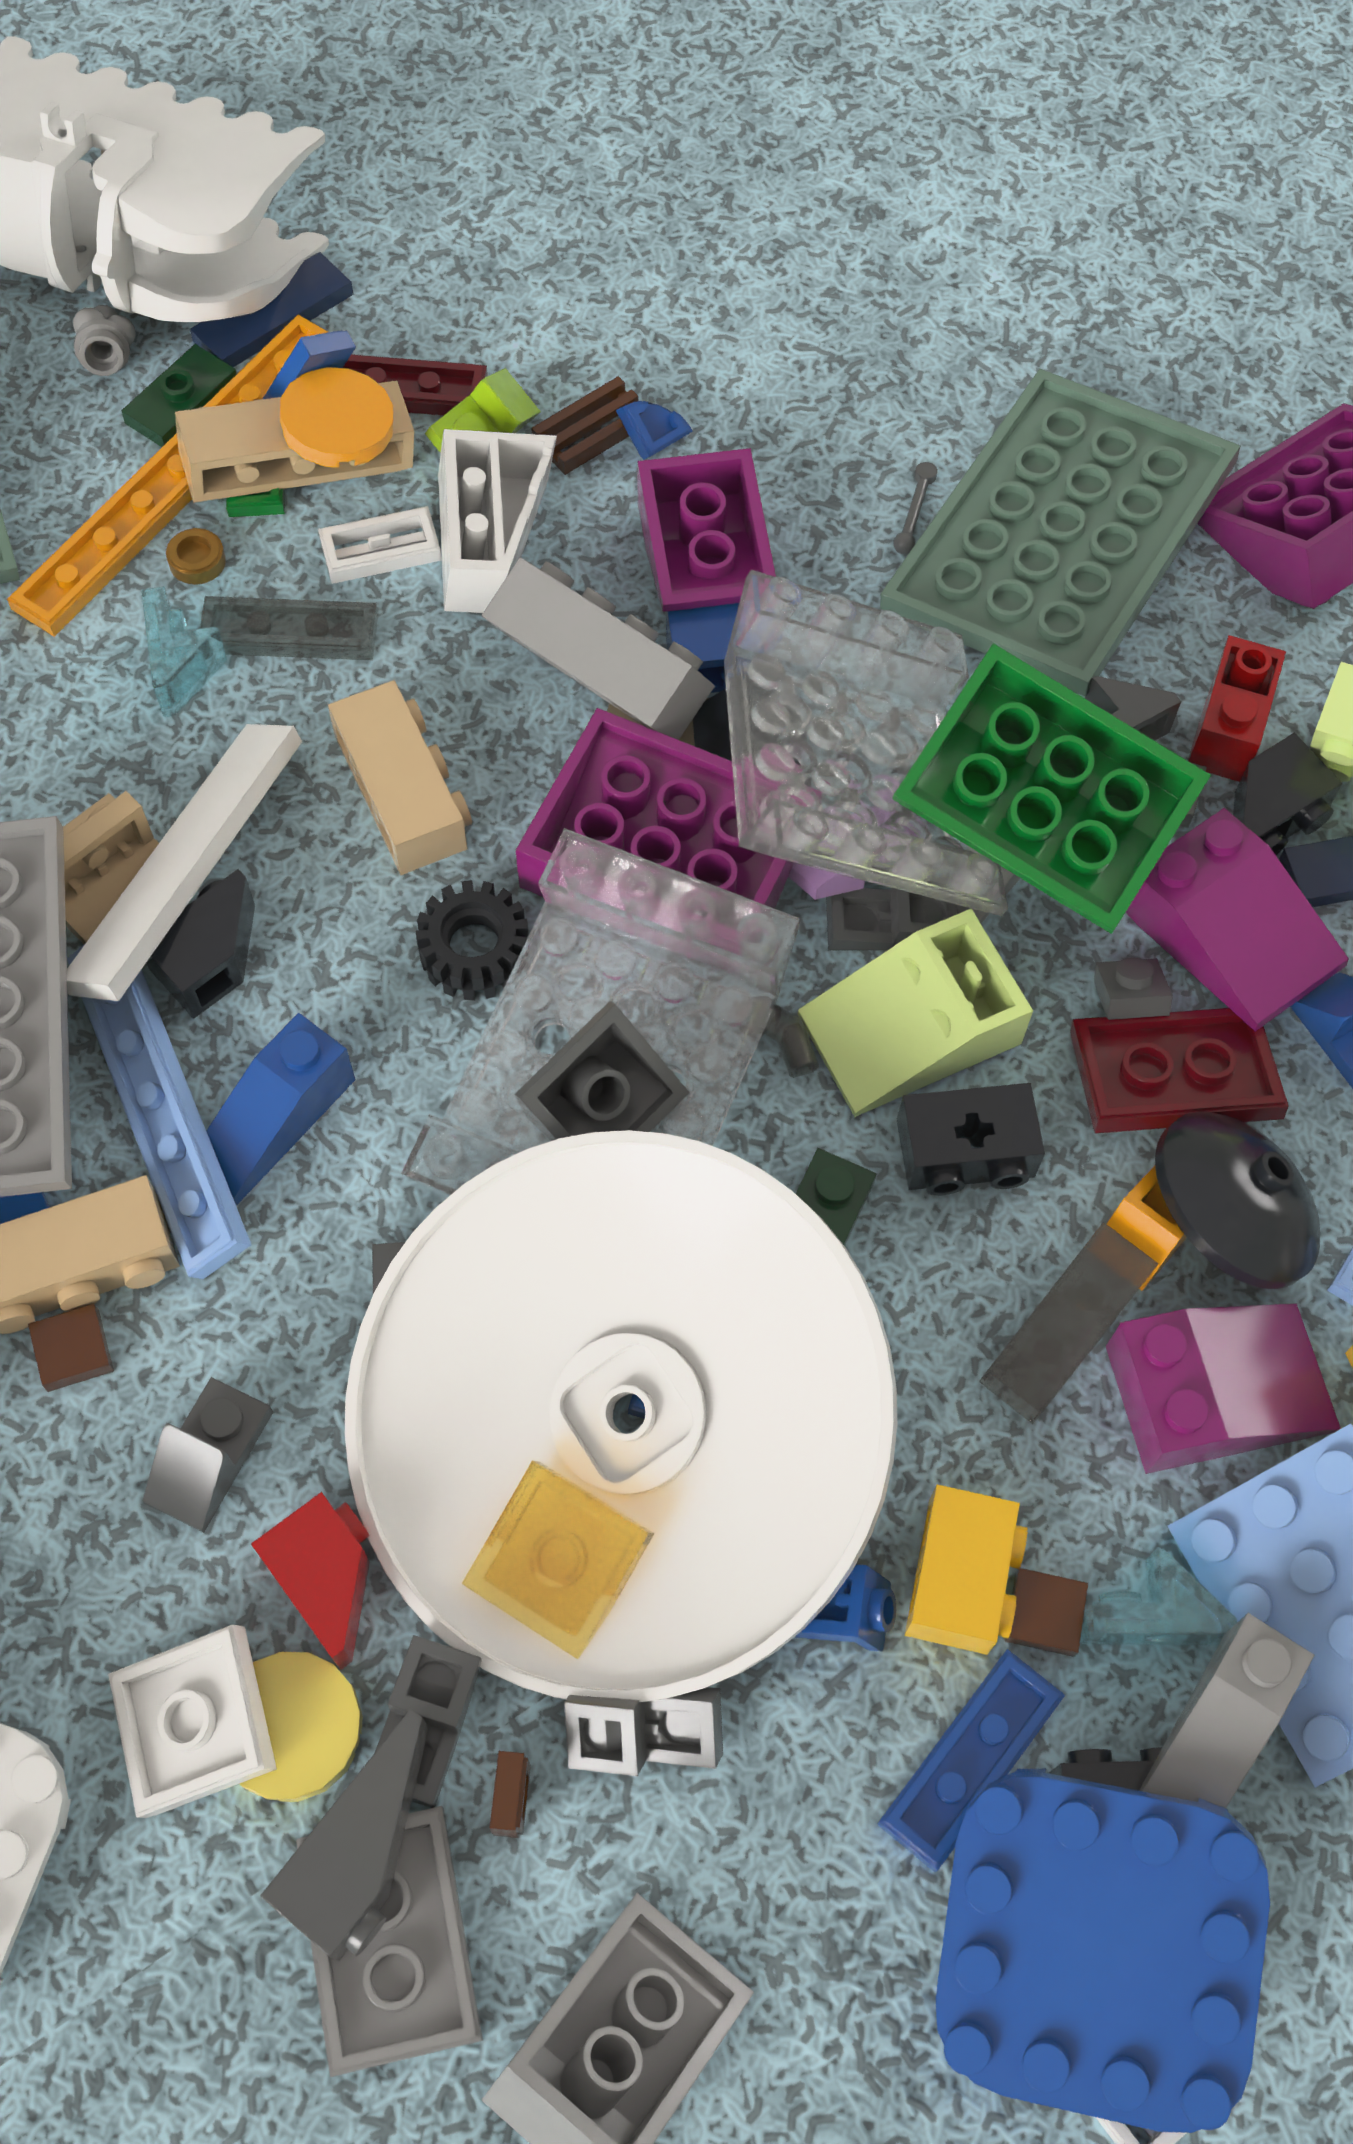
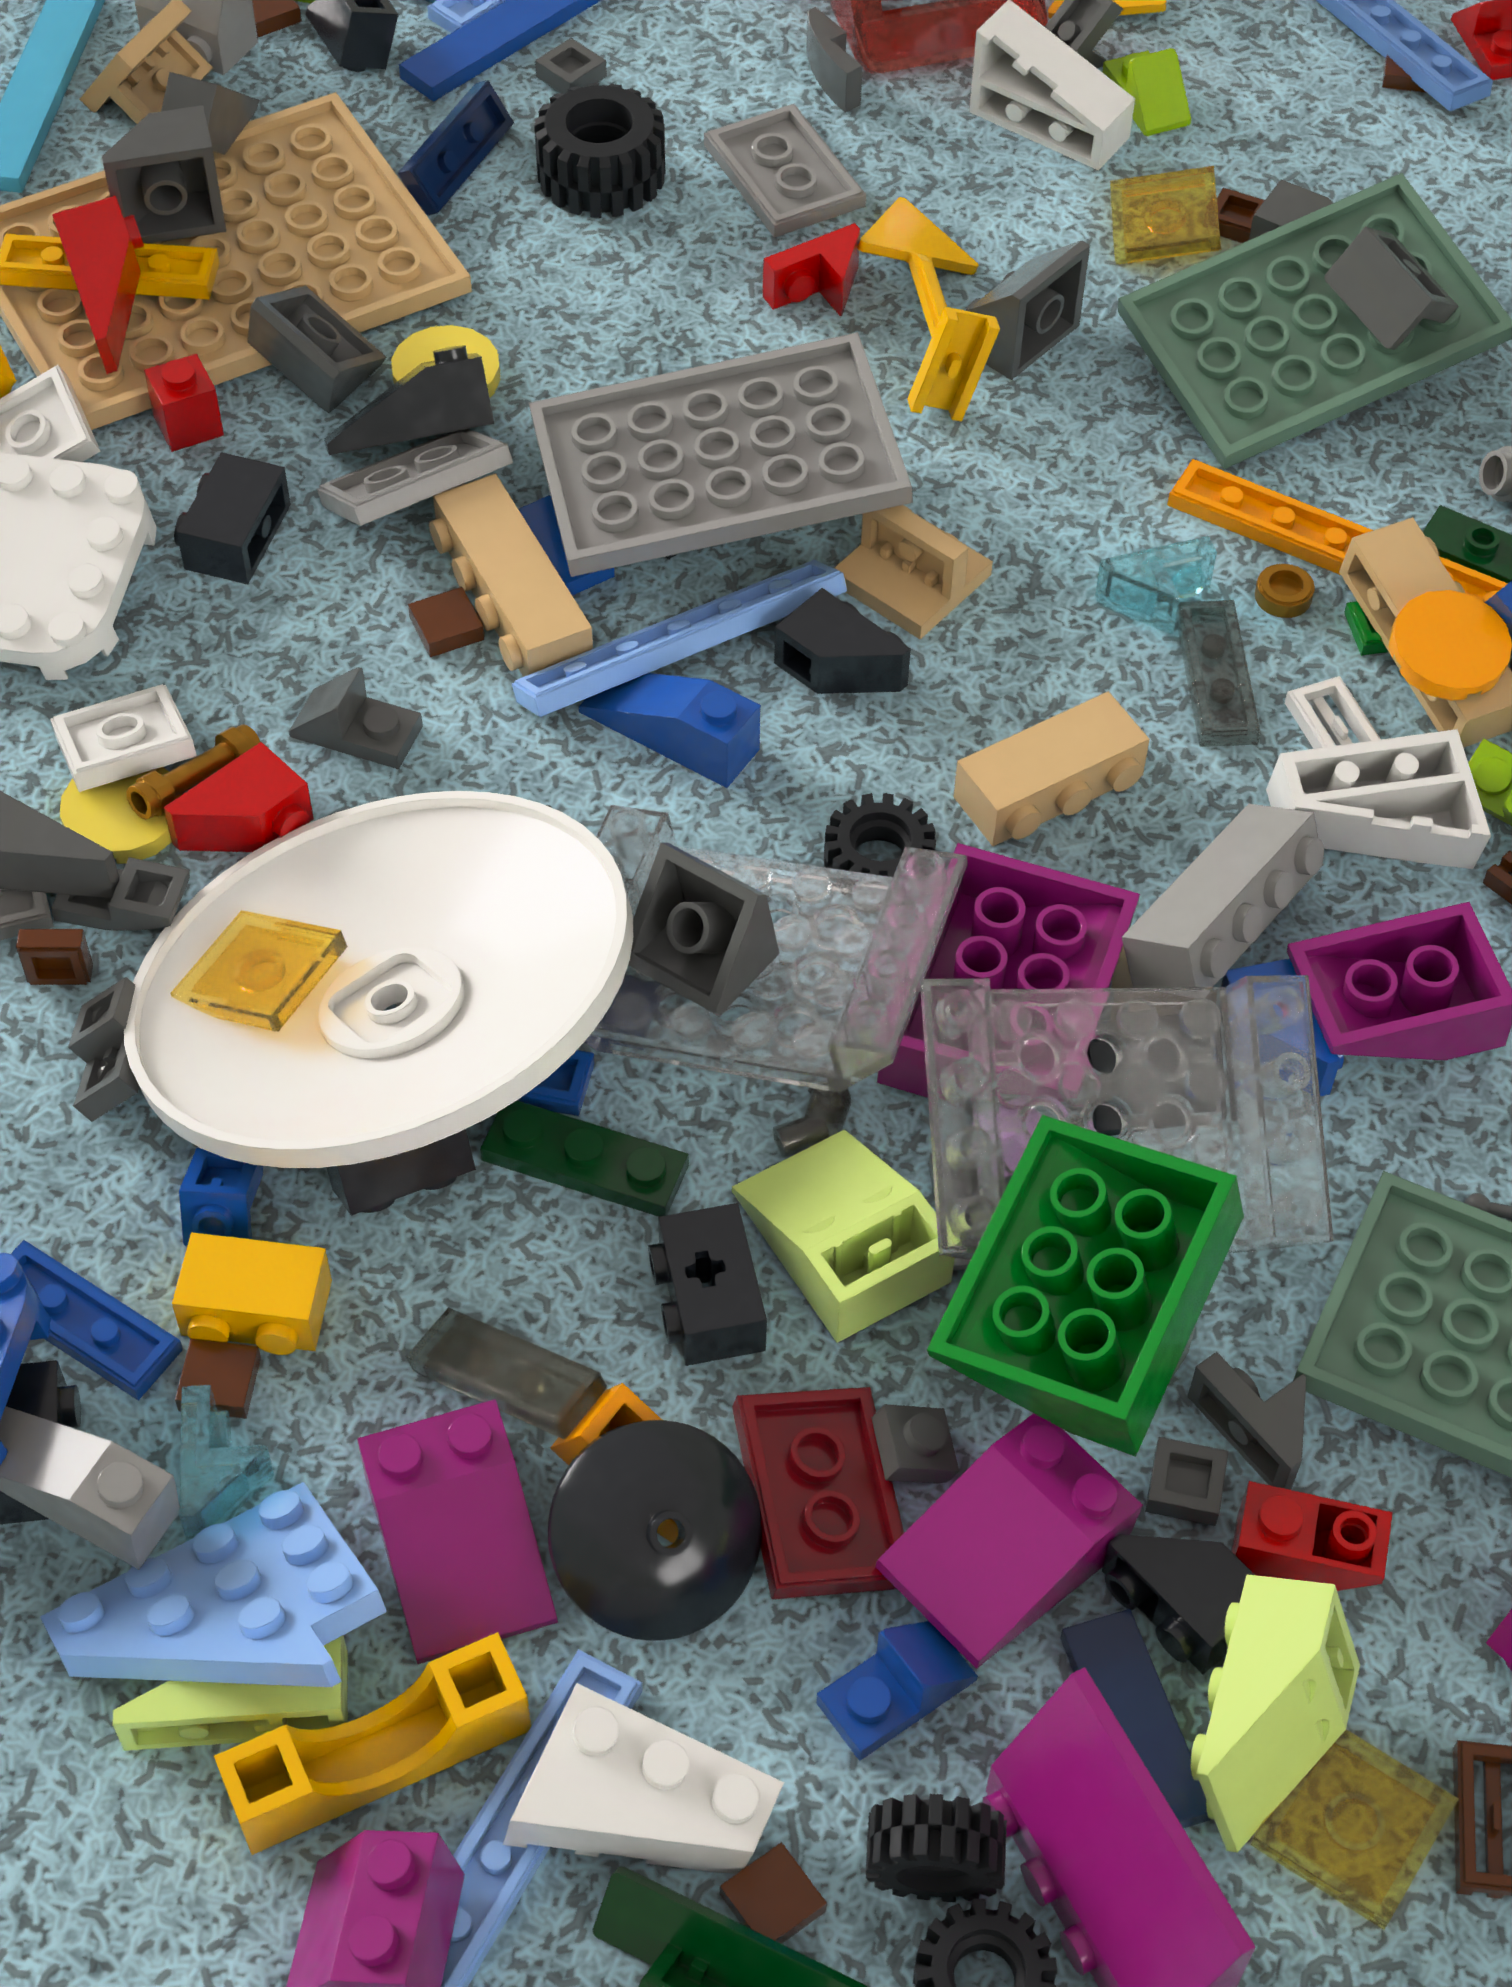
camera: 85 degrees right, 10 degrees down
(180, 863) = (920, 612): white tile -> none
(292, 1670) = (156, 791): none -> pearl gold bar

